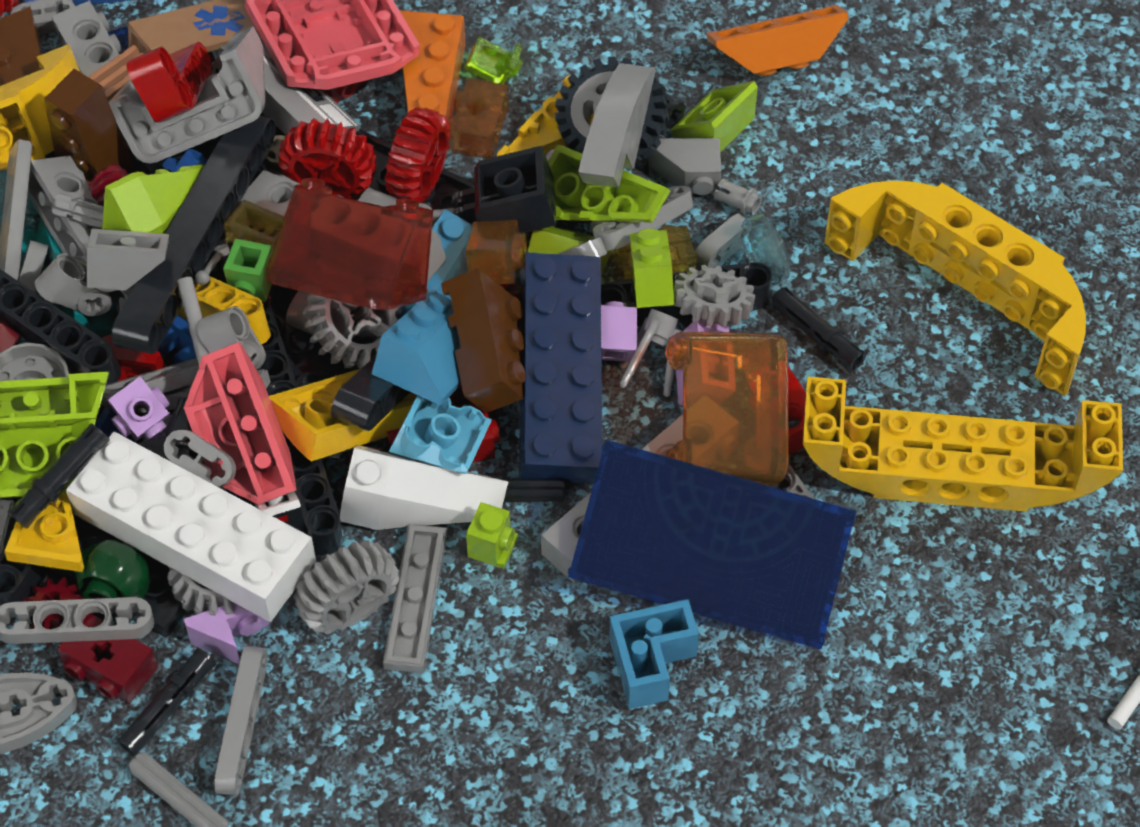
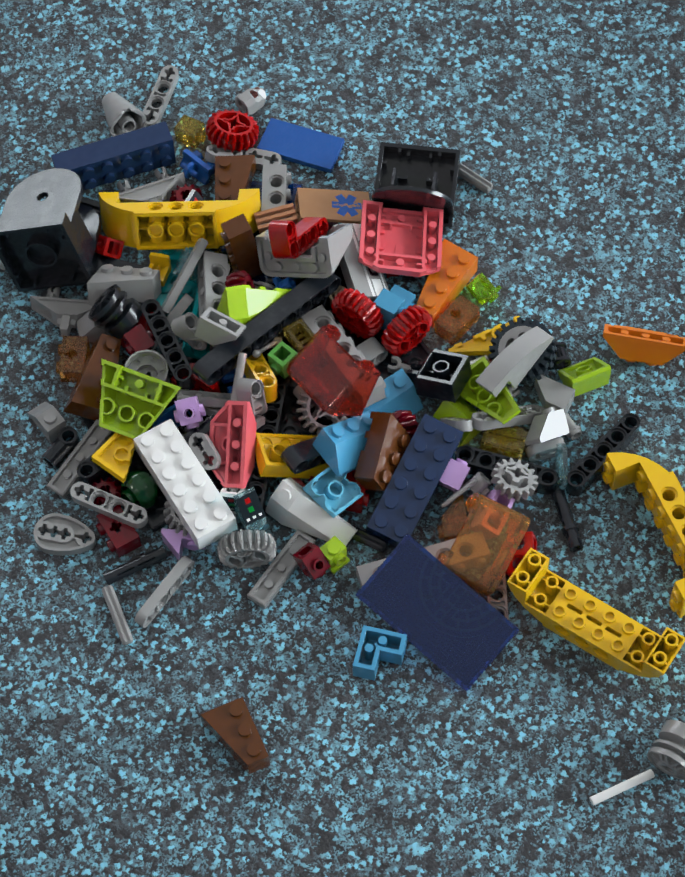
camera: 30 degrees right, 5 degrees up
(52, 482) = (125, 433): black pin -> none
(81, 211) = (213, 290): light grey axle -> none
(326, 515) = (249, 509): none -> slope
(378, 123) = (393, 303): none -> dark azure brick
(462, 559) = (311, 561): none -> dark red brick
(496, 249) = (412, 404): clear orange brick -> none
(652, 268) = (489, 450): lime piece -> none
(652, 403) = (452, 520): none -> clear orange slope
(710, 204) = (547, 426): none -> slope
(812, 211) = (605, 445): none -> black beam

